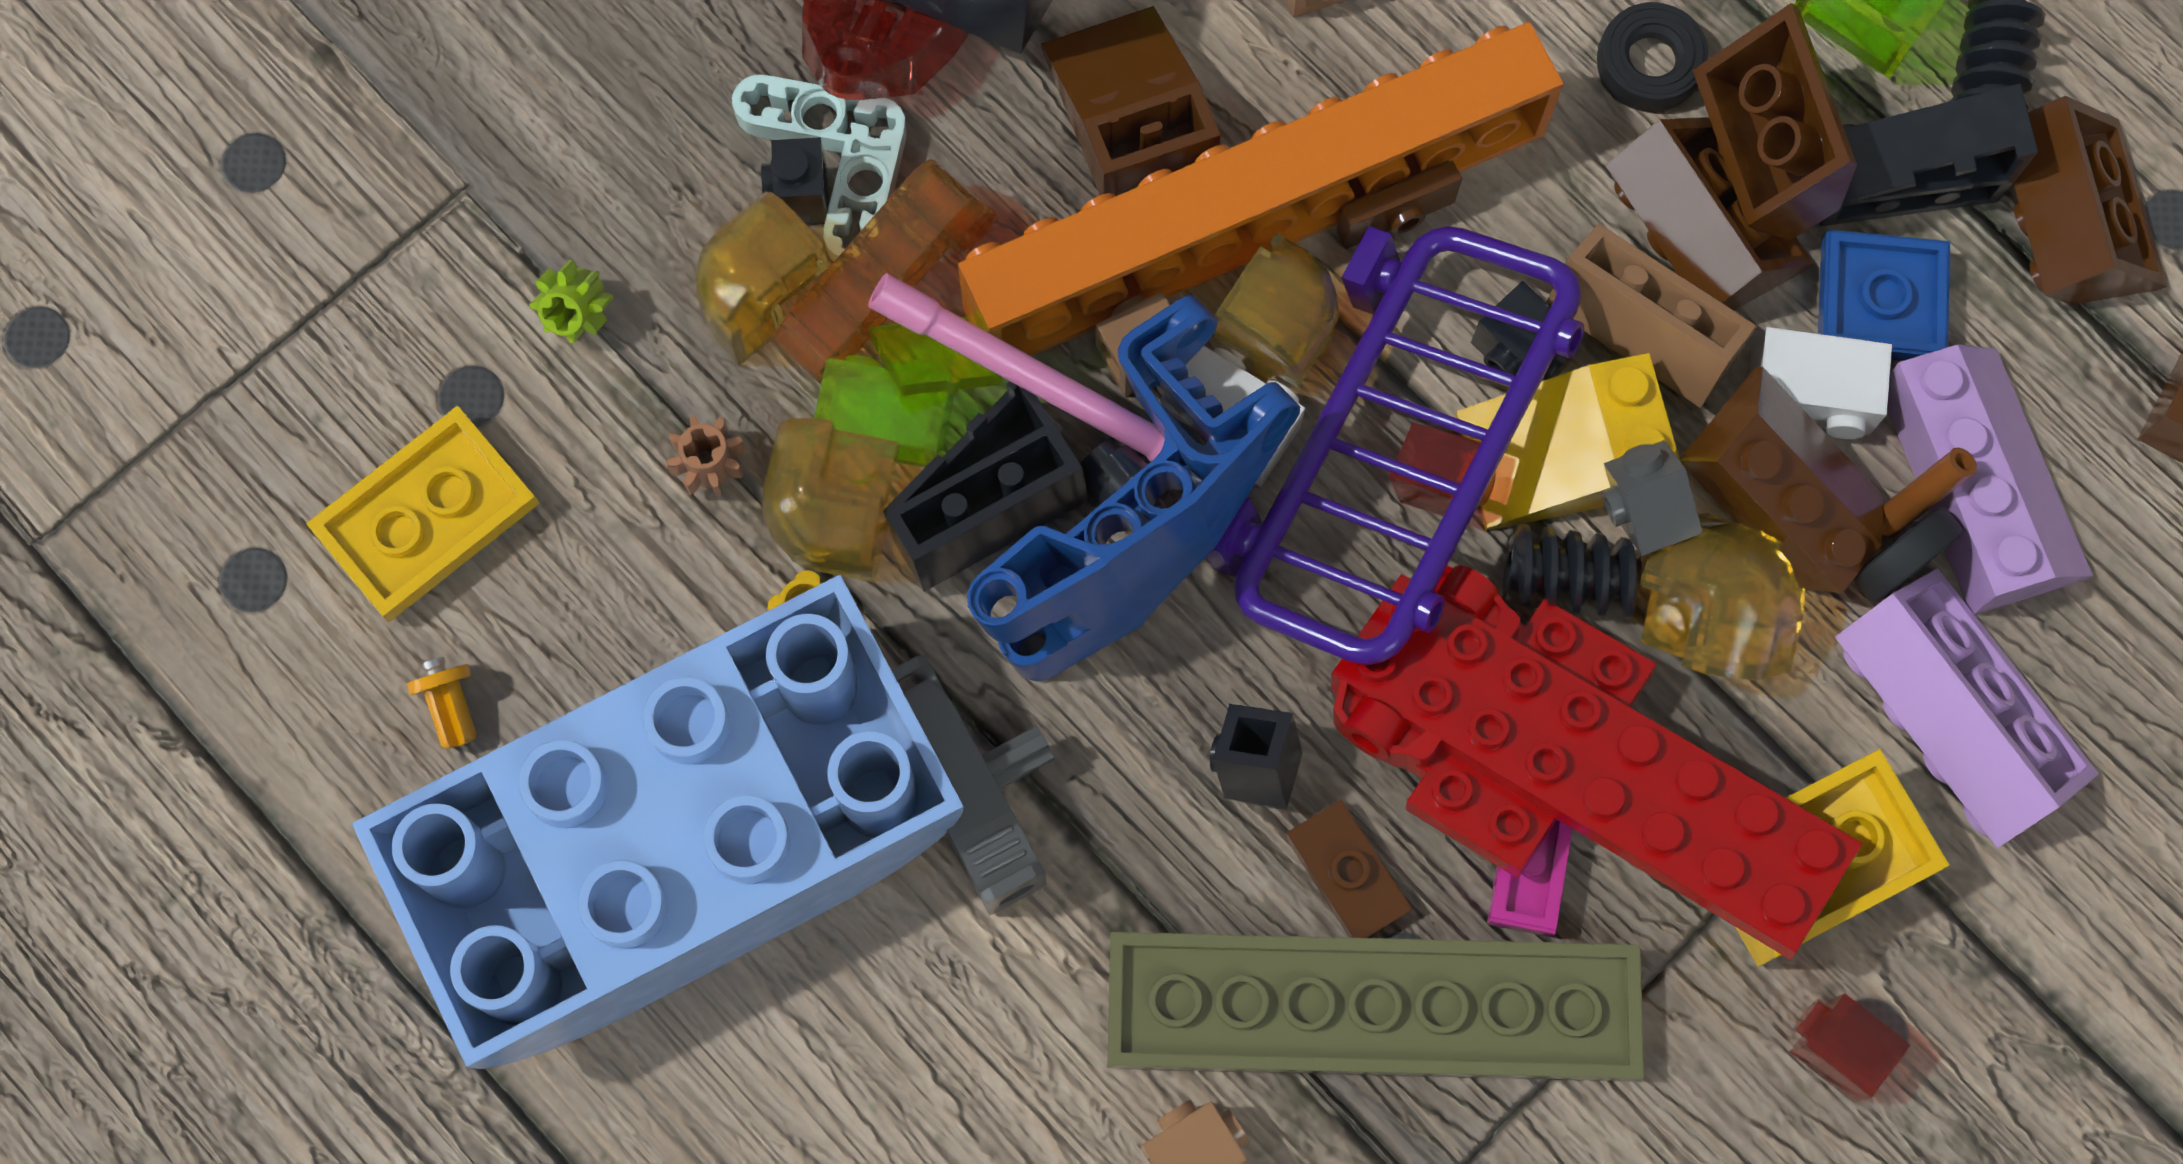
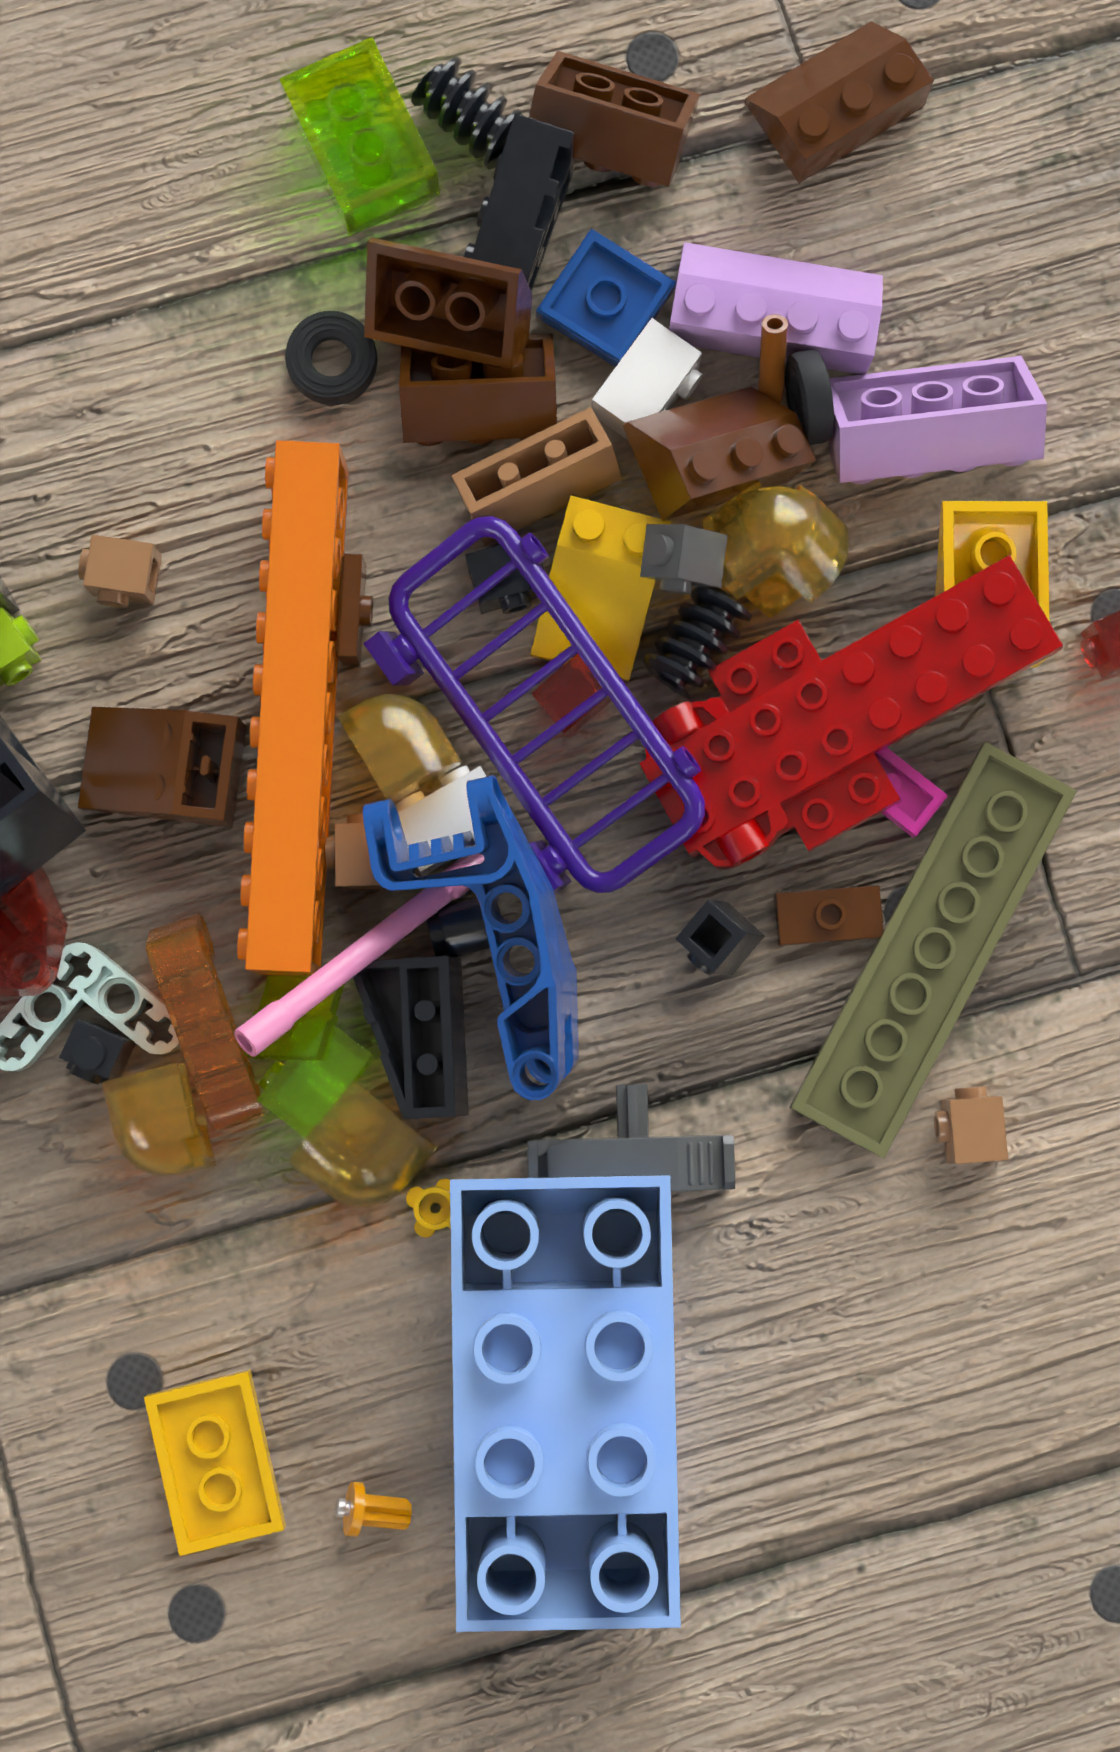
camera: 65 degrees left, 10 degrees up
(571, 301) = (104, 1271): lime gear -> none
(695, 440) = (292, 1217): nougat gear -> none

